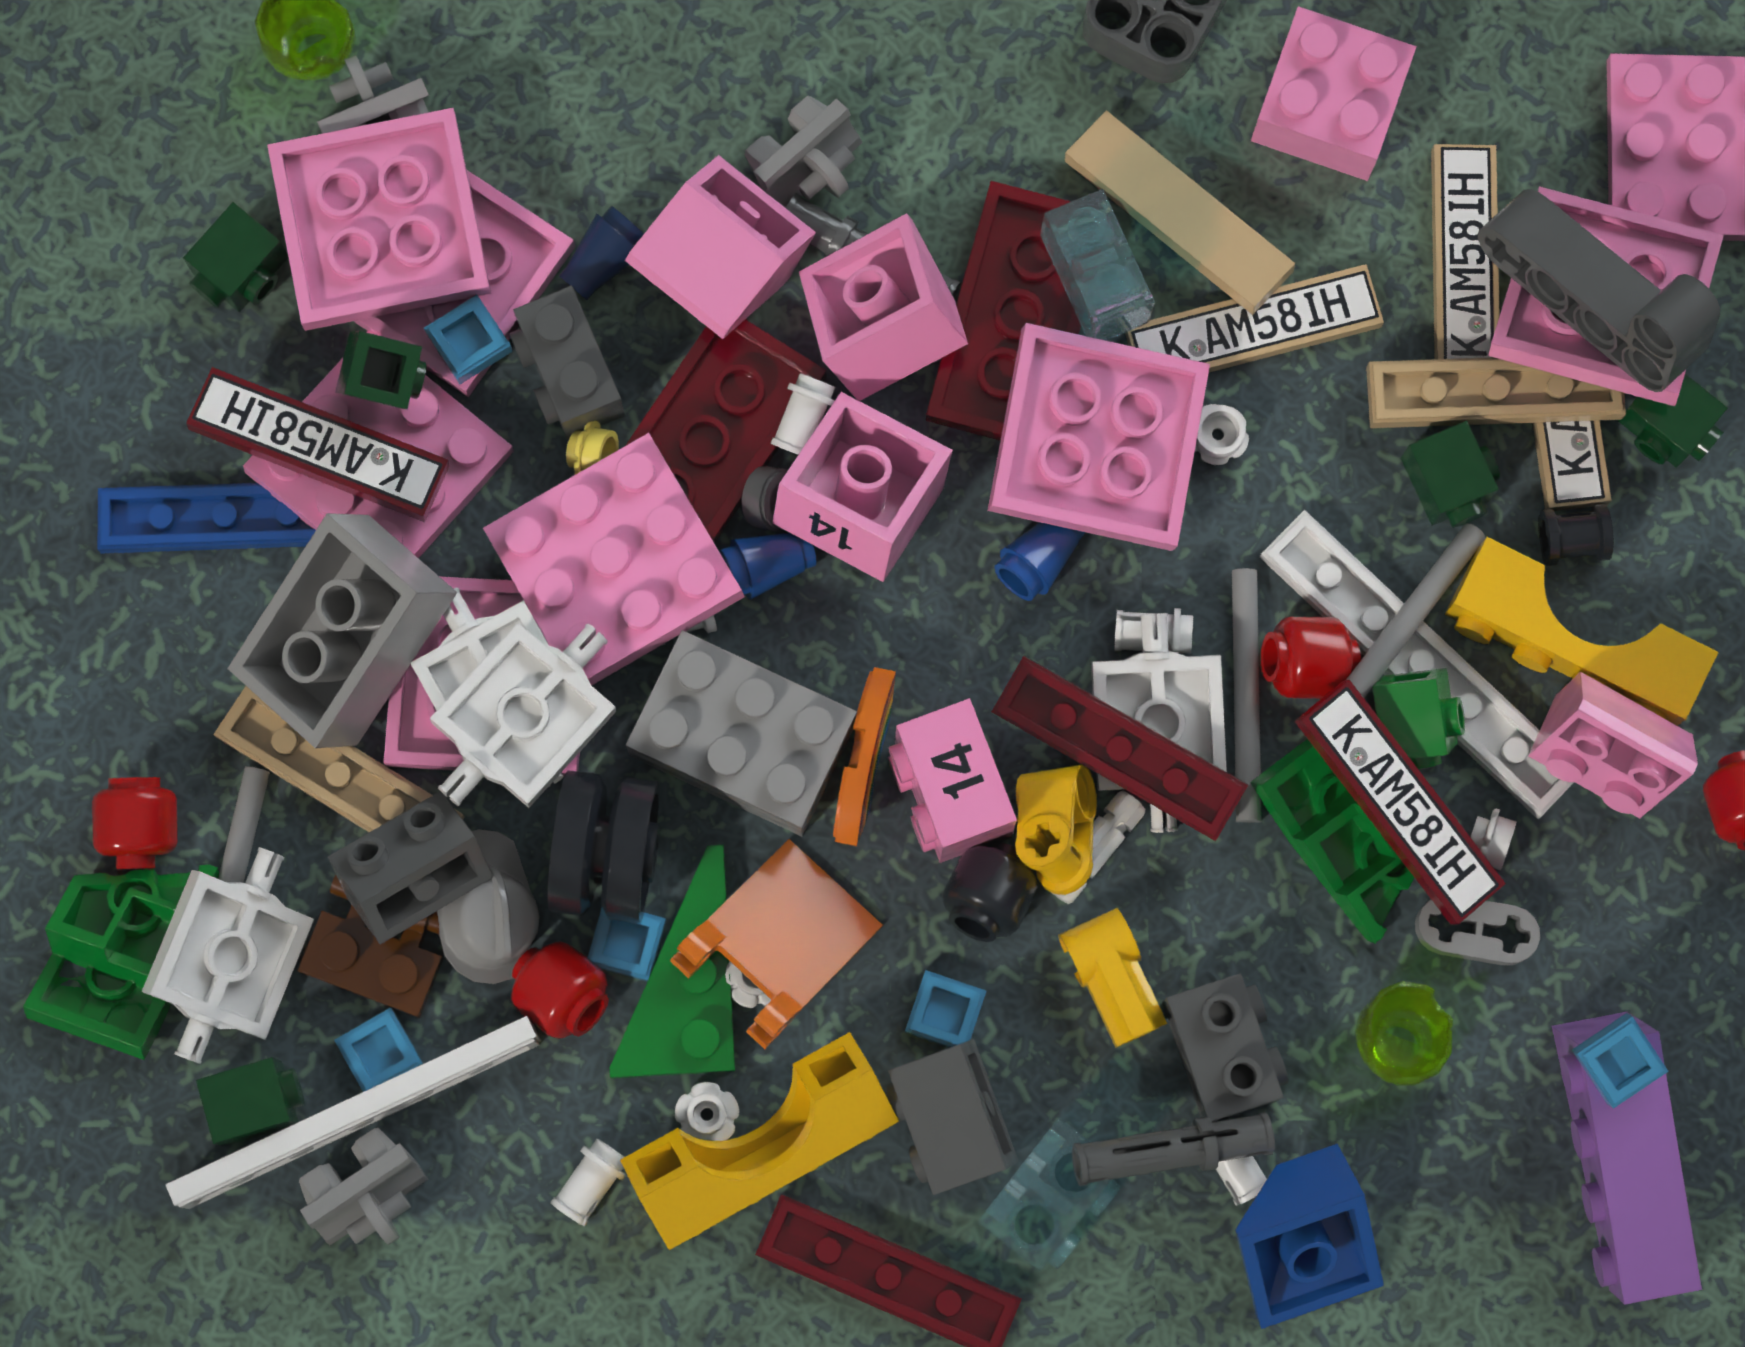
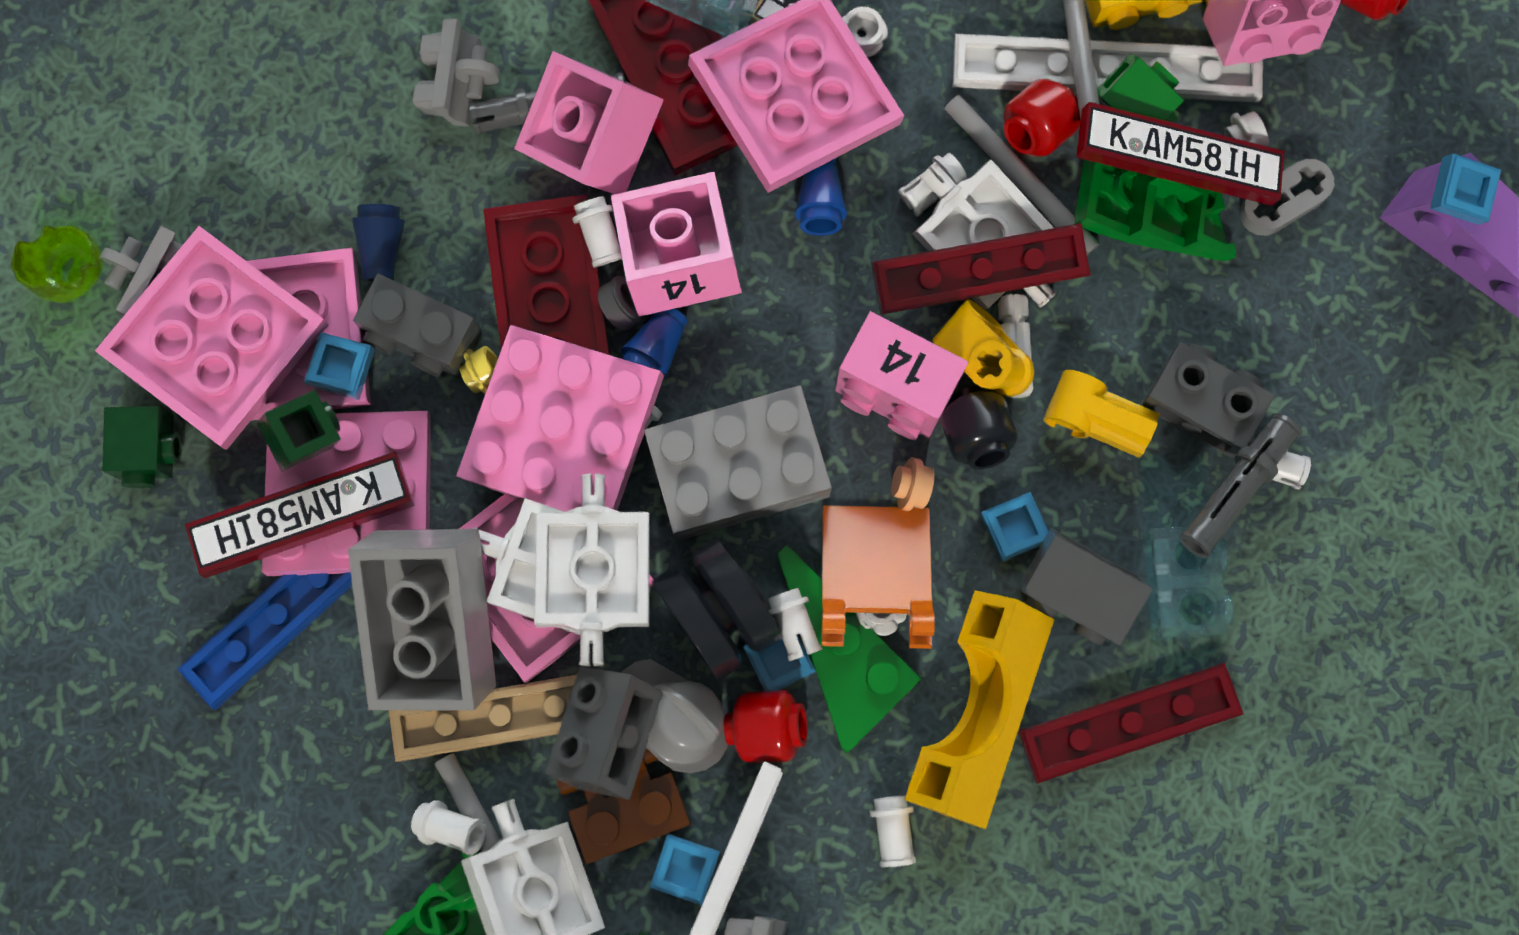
camera: 40 degrees left, 0 degrees up
(135, 821) = (393, 863): red head -> none
(201, 821) = (436, 823): none -> white pin
(664, 915) = (793, 619): none -> white pin
(709, 1096) = (917, 711): white plate -> none
(721, 247) = (452, 170): bright pink slope -> none
(860, 775) = (827, 411): orange tile -> none
(884, 890) = (912, 484): none -> light nougat plate
(1308, 1238) = (1363, 465): blue slope -> none
(1394, 1058) = (1312, 278): clear neon green hair -> none

